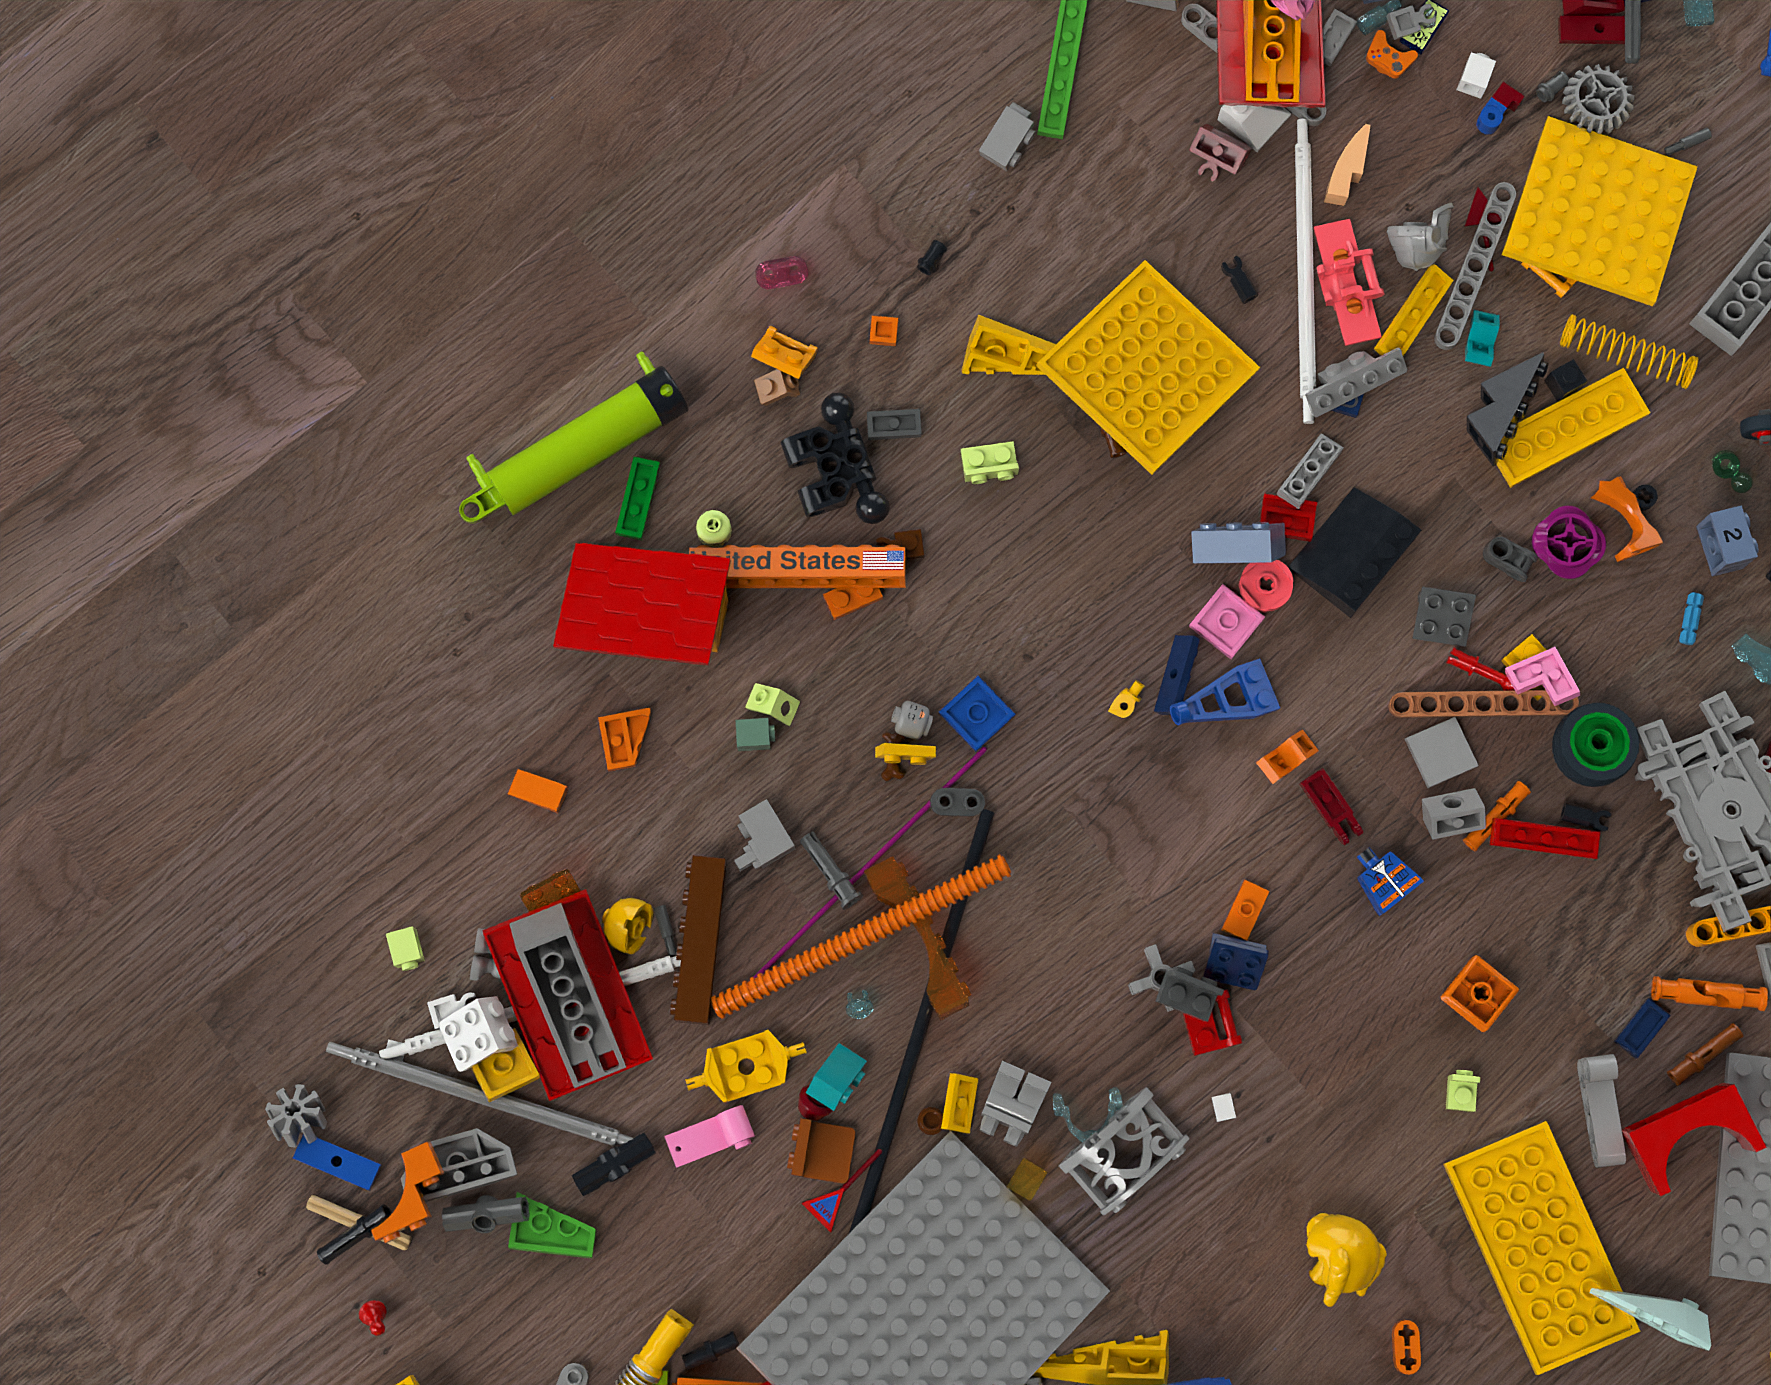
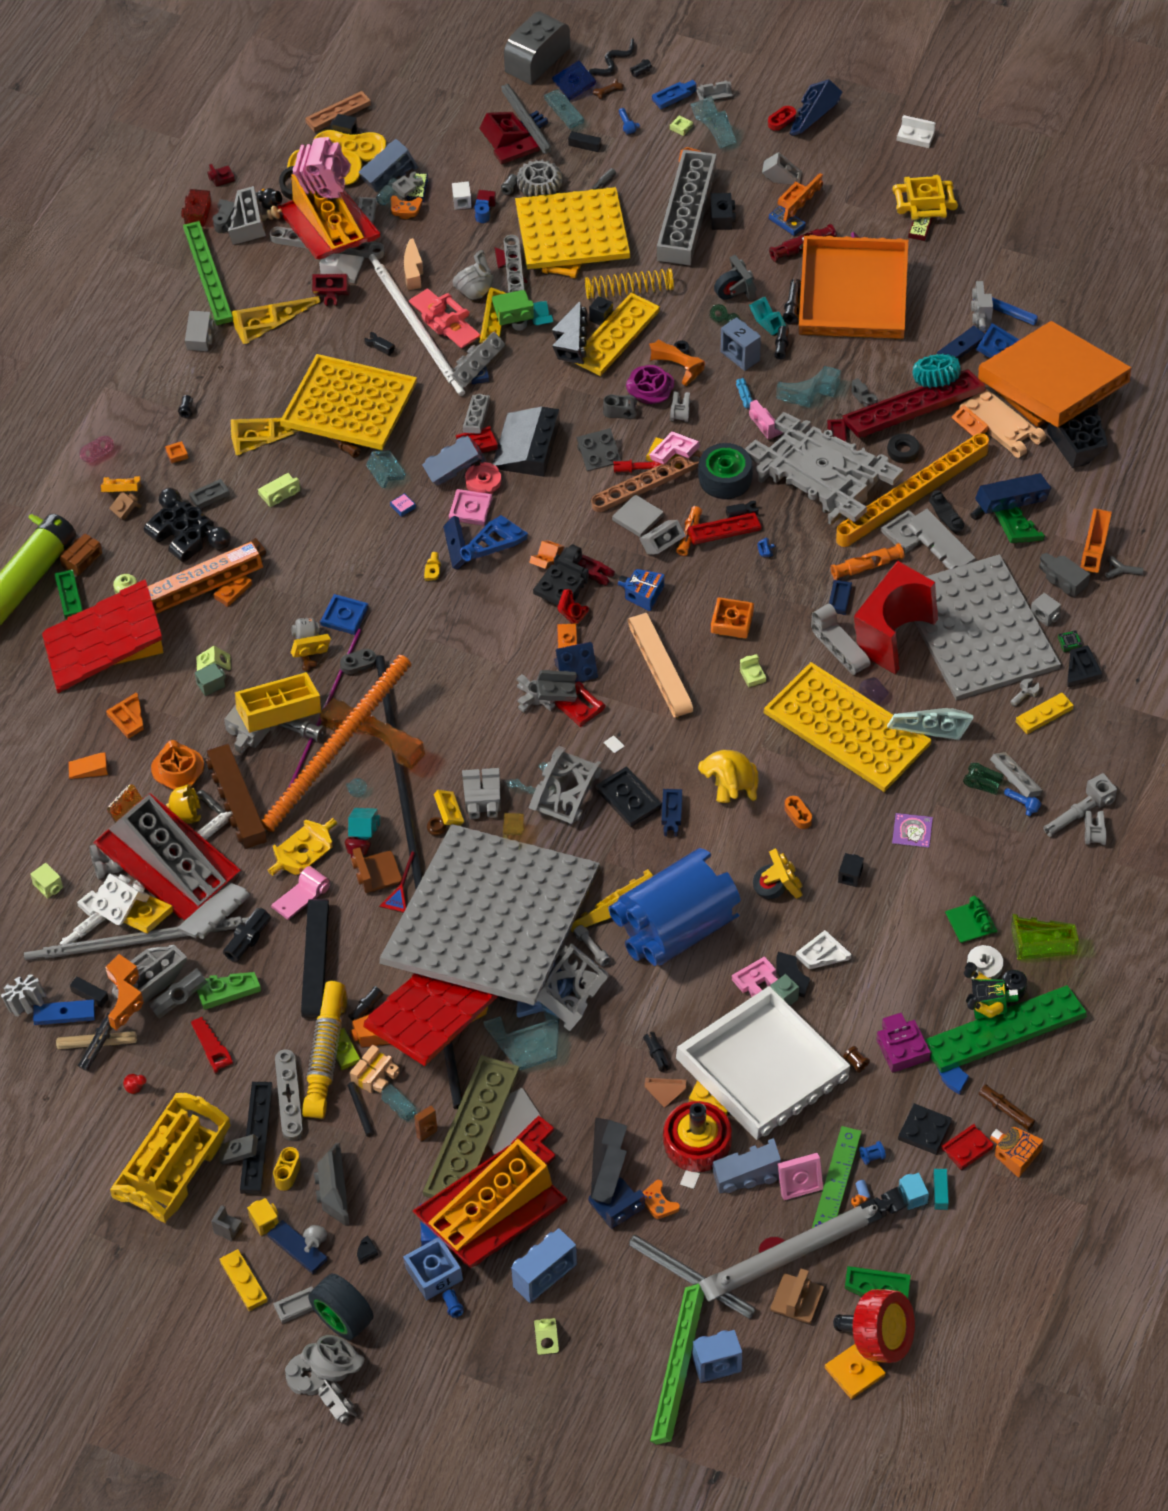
camera: 25 degrees left, 25 degrees down
(382, 1145) = (89, 991): none -> black piece
(494, 1304) = (211, 1045): none -> red piece
(583, 1106) = (214, 911): none -> light grey windscreen
(651, 828) = (174, 754): none -> orange piece
(681, 440) = (81, 554): none -> dark orange brick
(681, 1246) = (315, 957): none -> black beam
(838, 843) = (277, 702): none -> yellow brick
(1099, 155) = (258, 320): none -> yellow wedge
(1139, 571) = (402, 504): none -> tile
(1145, 499) = (385, 467): none -> clear light blue bracket
(1199, 1207) = (628, 796): none -> black plate
(1244, 1258) = (671, 810): none -> dark blue plate
(1271, 869) = (569, 609): none -> red piece
(1285, 816) = (562, 576): none -> black plate
(1346, 1018) = (660, 665): none -> light nougat beam
(1447, 316) = (513, 307): none -> bright green bracket
(1584, 607) = (678, 410): none -> light grey piece
(1584, 897) = (765, 547): none -> blue piece
(1604, 1209) = (873, 690): none -> clear purple plate
(1693, 684) = (763, 420): none -> bright pink bracket
(1695, 60) = (584, 141): none -> black piece

